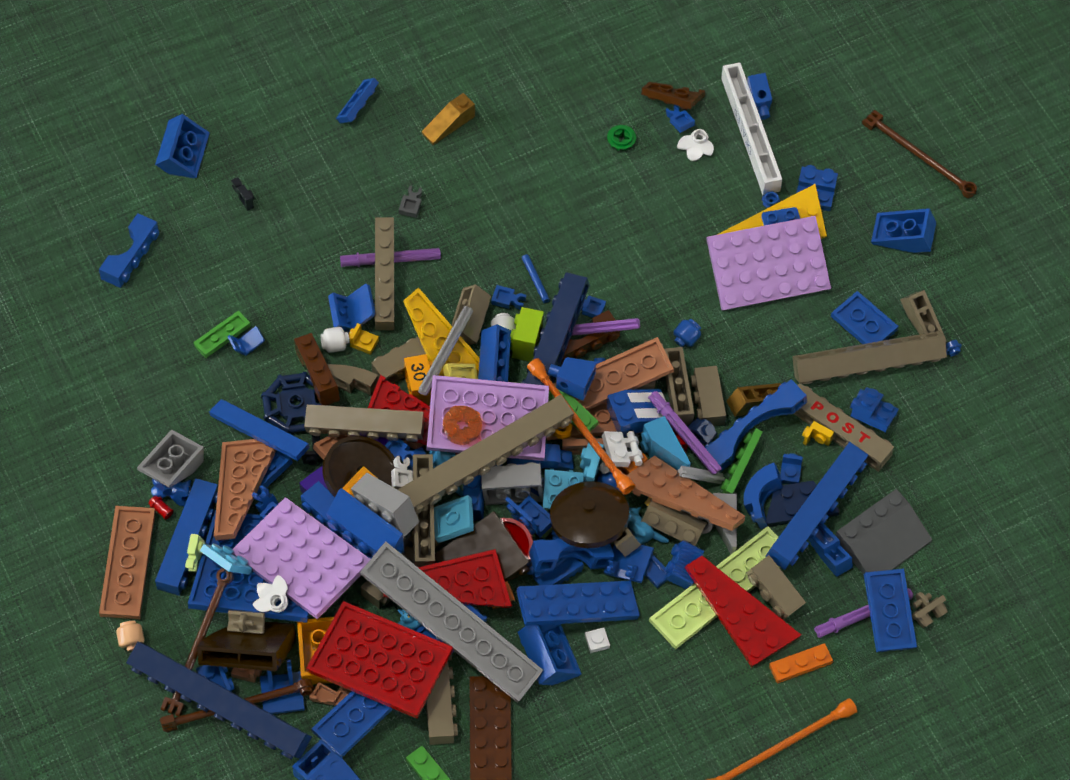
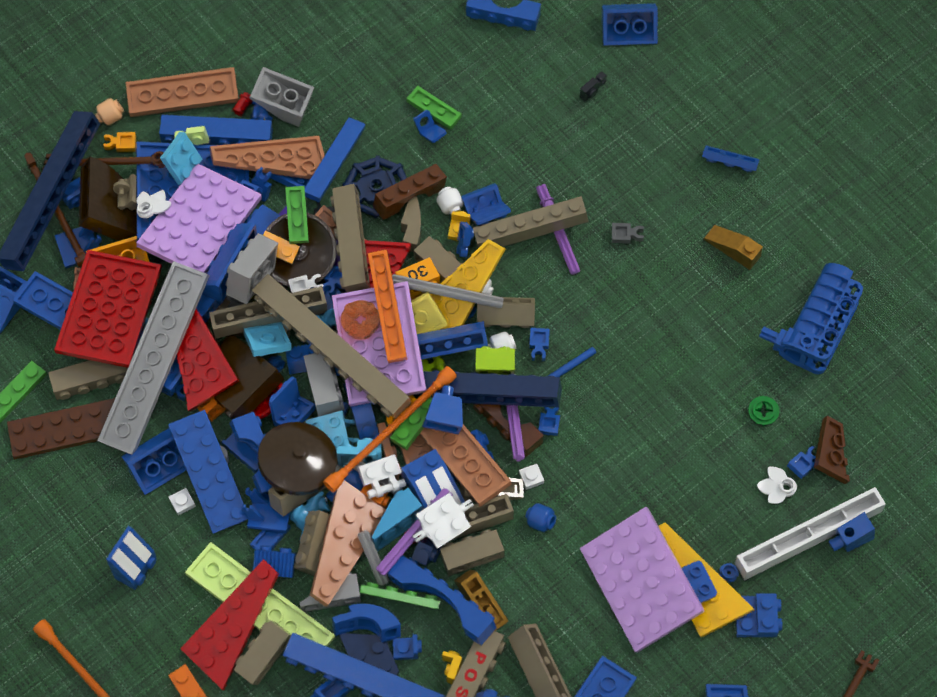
camera: 80 degrees right, 5 degrees up
(169, 629) = (123, 142): none -> light orange plate
(332, 457) = (296, 214): none -> bright green plate
(382, 332) = (465, 235): none -> blue plate
(457, 395) = (387, 306): none -> orange plate
(547, 67) = (818, 320): none -> blue piece
(642, 334) = (531, 476): none -> white plate
(656, 690) = (131, 559): none -> blue slope
(682, 403) = (443, 520): none -> white plate

